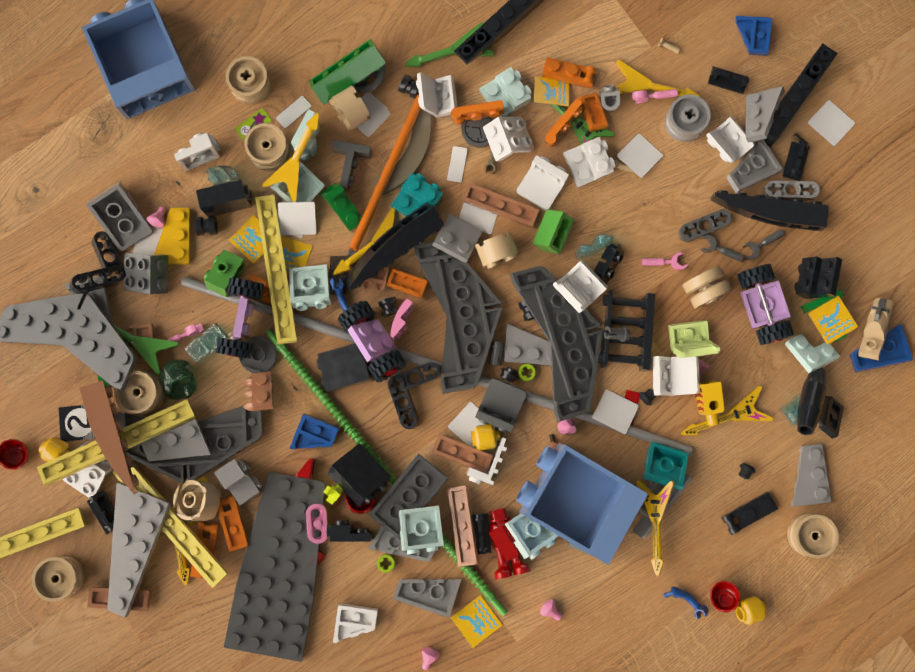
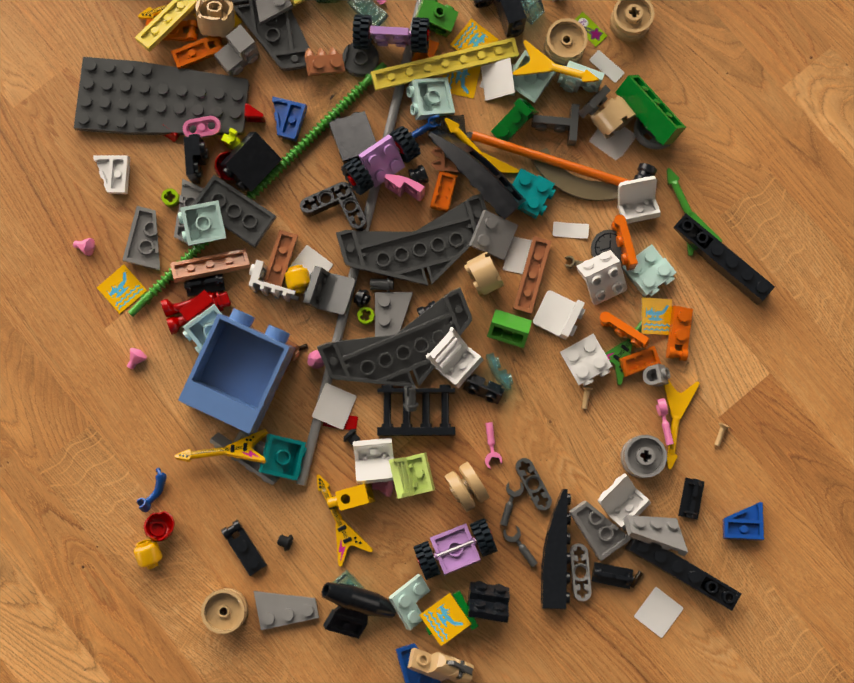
camera: 85 degrees right, 0 degrees up
(332, 125) = (598, 99): none -> dark grey plate
(639, 155) = (600, 412): white sticker -> none

